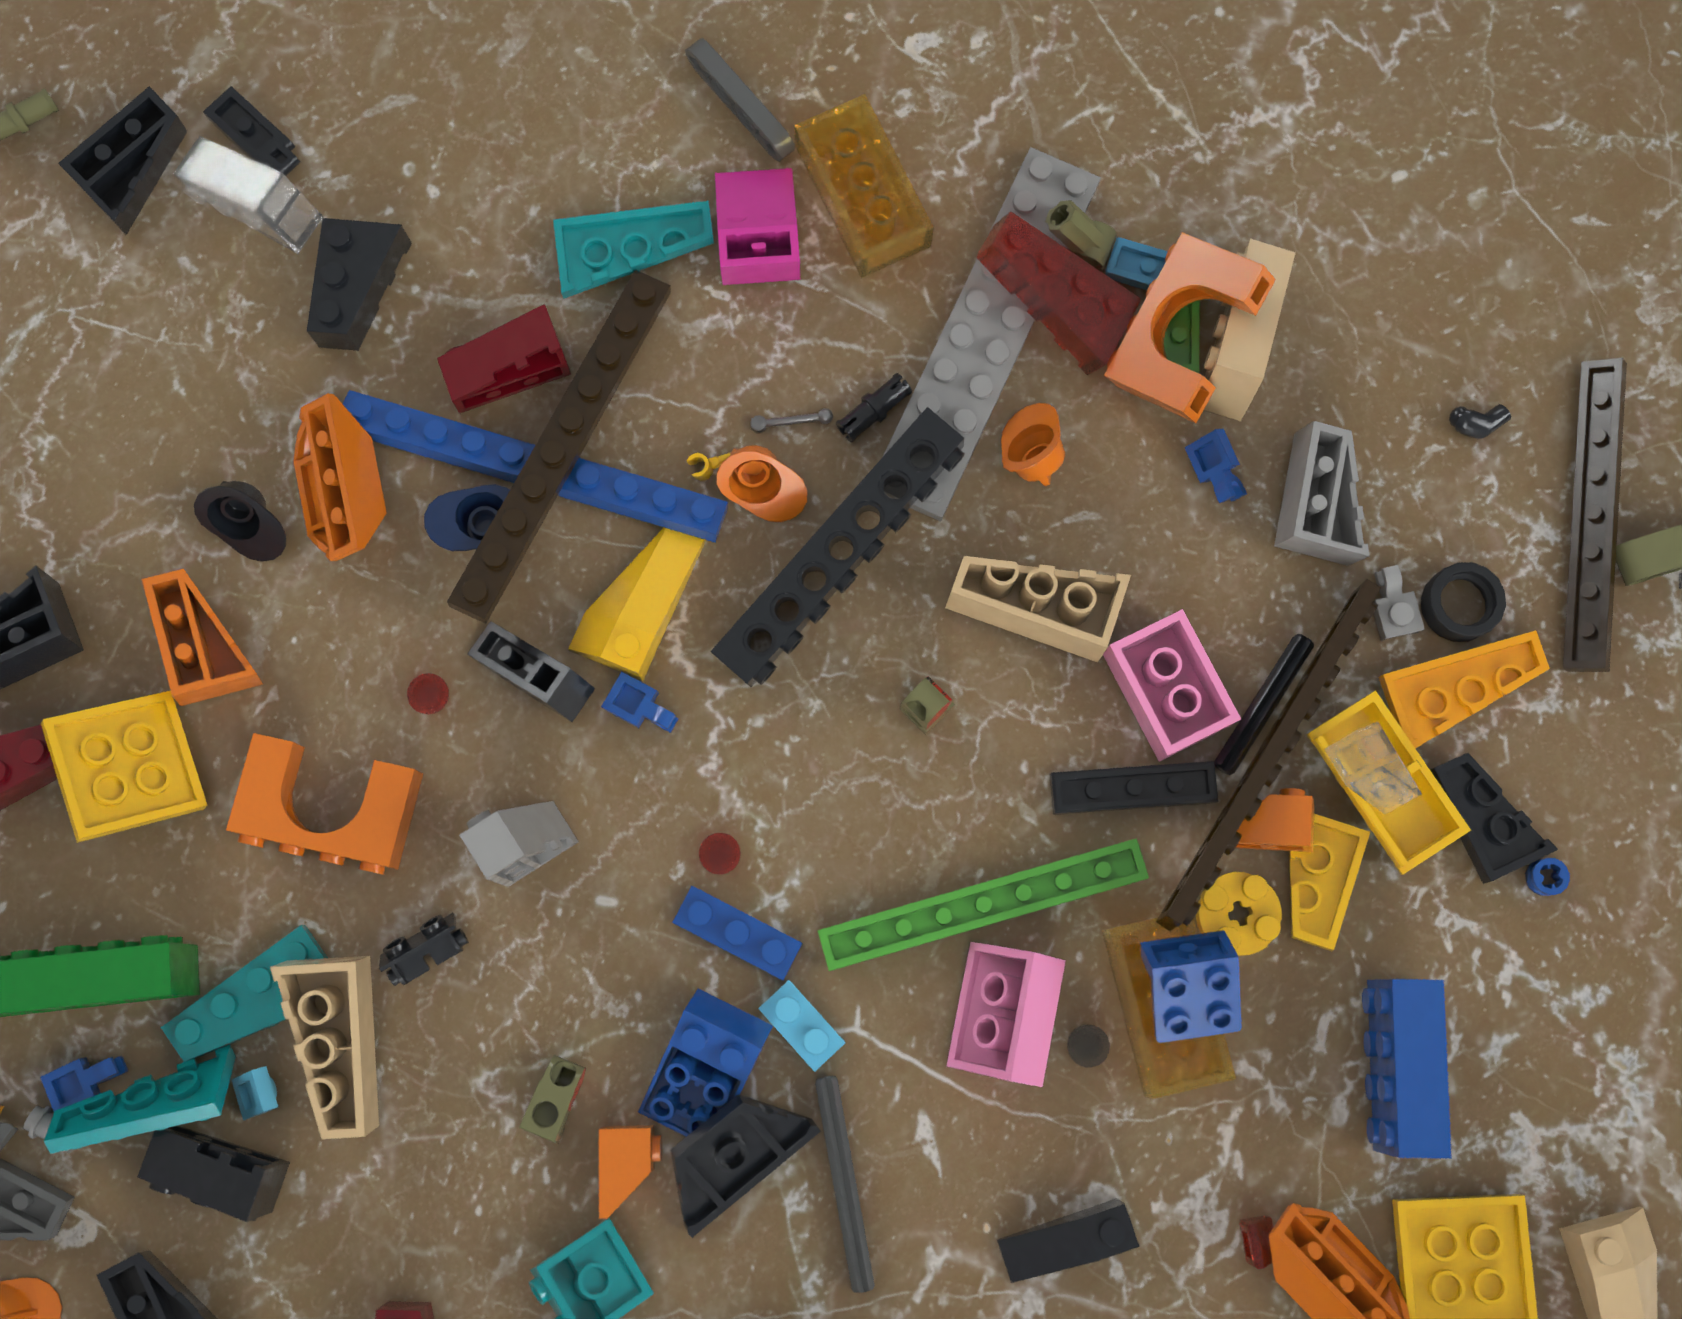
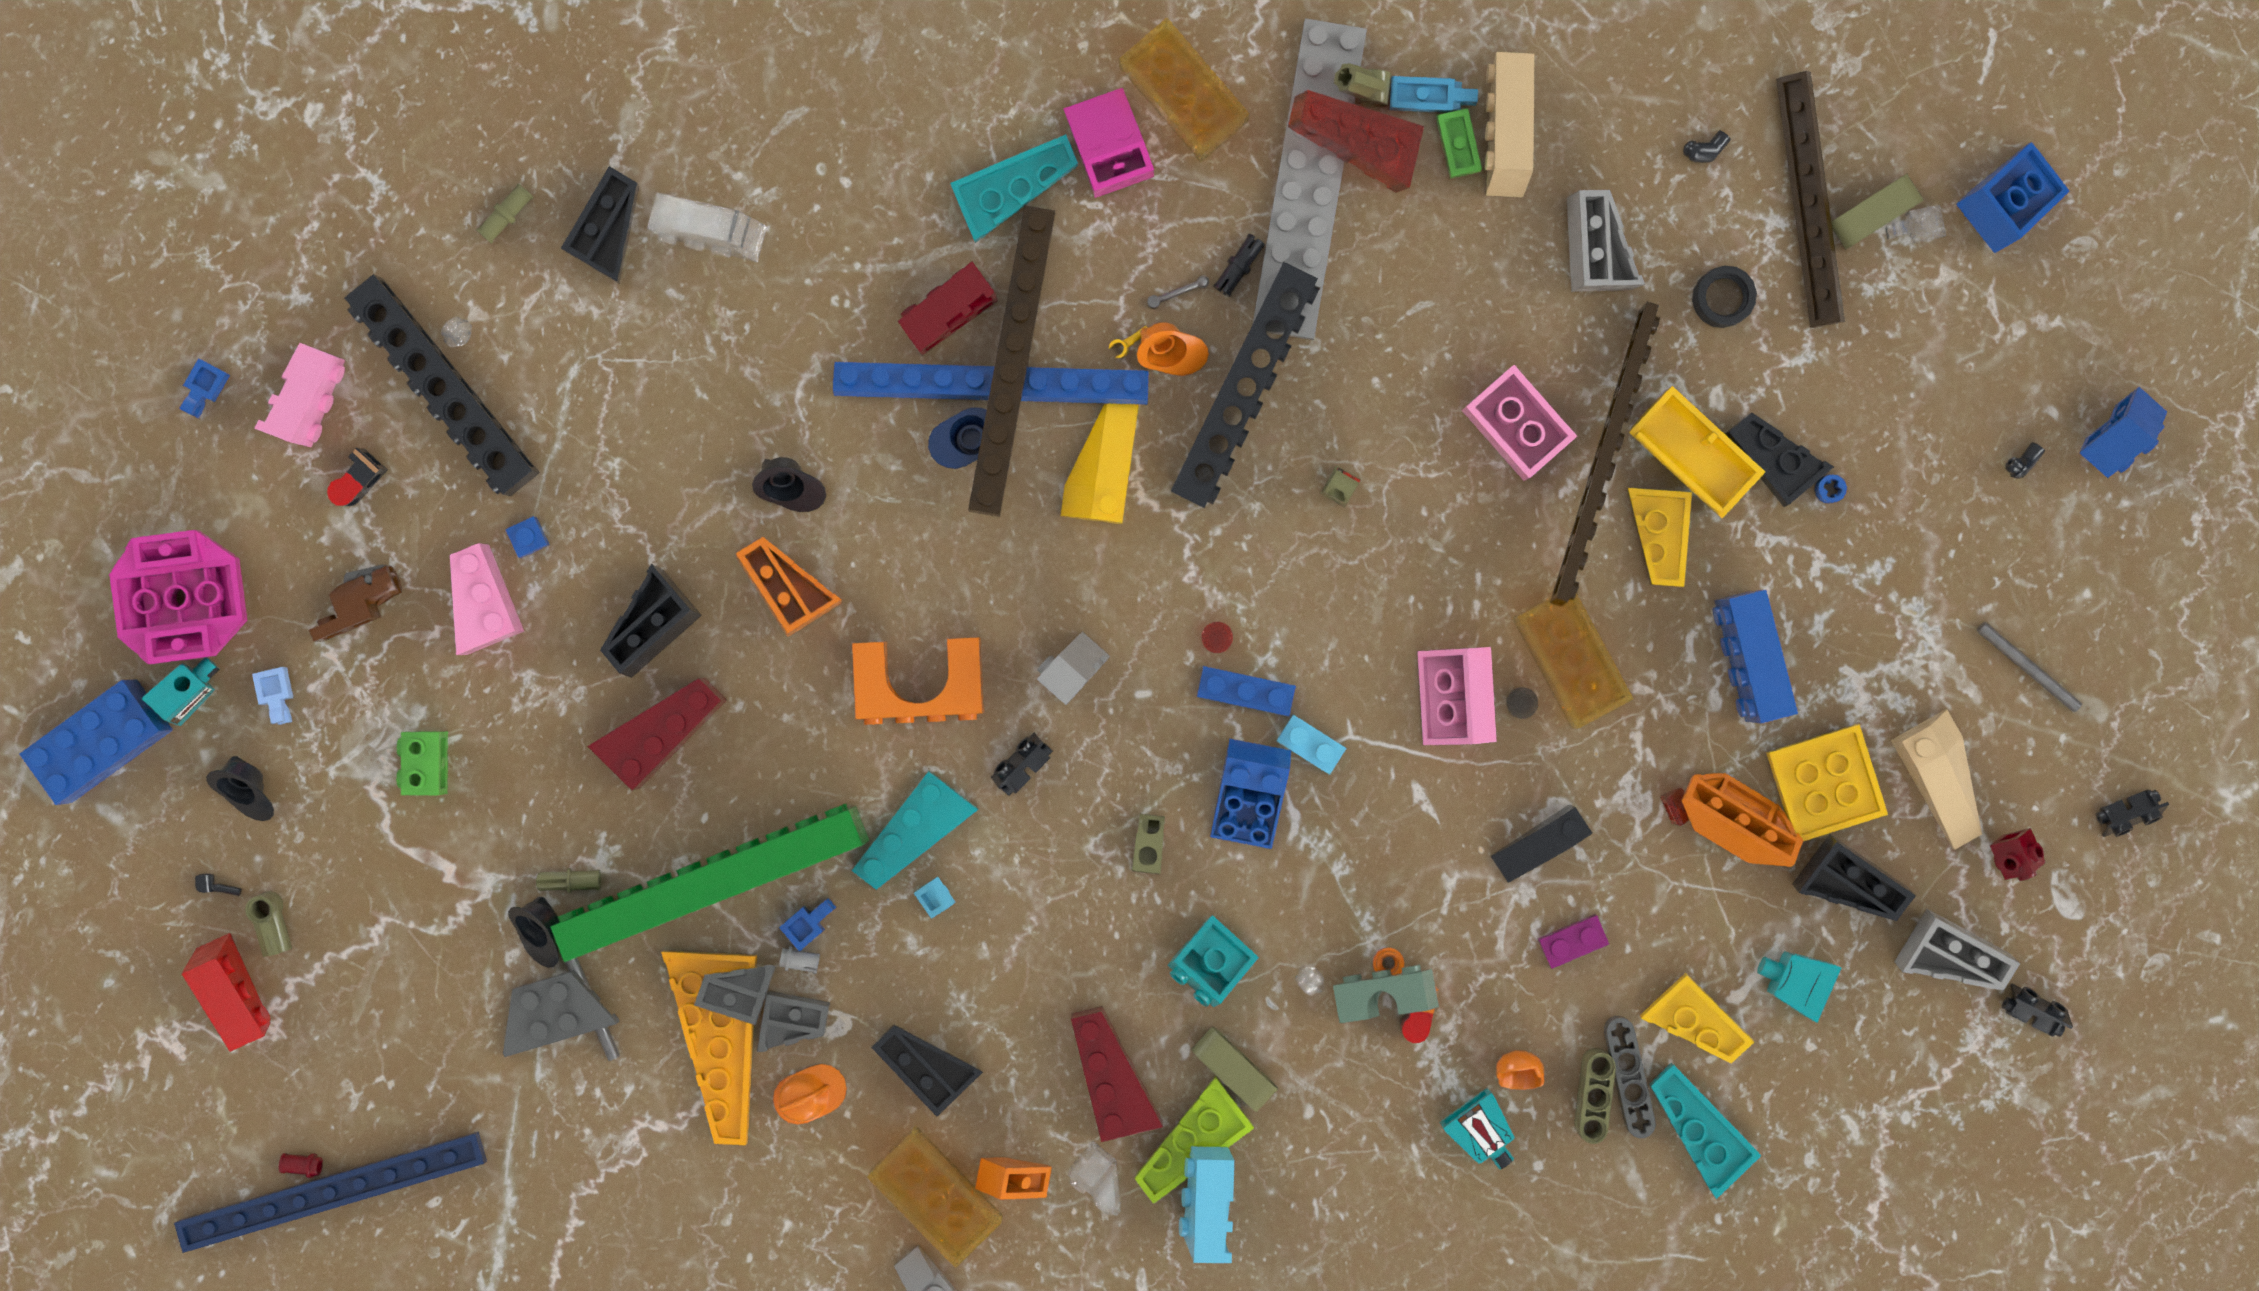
camera: 15 degrees left, 10 degrees up
(123, 765) = (765, 692): yellow plate -> none
(146, 1106) = (863, 926): teal wing -> none
(213, 1172) = (923, 959): black wedge -> none
(252, 131) = (692, 175): black hinge -> none
(334, 1039) = (978, 836): tan wedge -> none
(337, 478) = (850, 437): orange wedge -> none
(350, 278) = (809, 274): black wedge -> none
(428, 694) = (967, 578): clear red plate -> none
(532, 671) = (1039, 540): black slope -> none
(625, 1160) = (1213, 874): orange slope -> none
(635, 701) = (1122, 542): blue plate -> none
(733, 1155) = (1288, 849): black wing -> none
(740, 99) = (1066, 42): dark grey beam -> none
(844, 1184) = (1372, 846): dark grey axle -> none
(982, 904) = (1420, 622): bright green plate -> none
(1033, 443) = (1368, 261): orange piece -> none
(1041, 602) = (1407, 386): tan wedge -> none
(1133, 787) = (1509, 505): black tile -> none
(1190, 273) = (1455, 98): orange arch -> none
(1193, 985) = (1587, 641): blue bracket -> none
(1212, 461) = (1510, 237): blue plate -> none
(1251, 892) = (1626, 583): yellow plate -> none
(1264, 704) = (1592, 415): black axle -> none
(1280, 823) = (1625, 504): orange slope -> none
(1373, 768) = (1682, 446): clear slope -> none
(1396, 611) = (1676, 317): light grey plate -> none
(1449, 689) = (1728, 367): light orange wing -> none

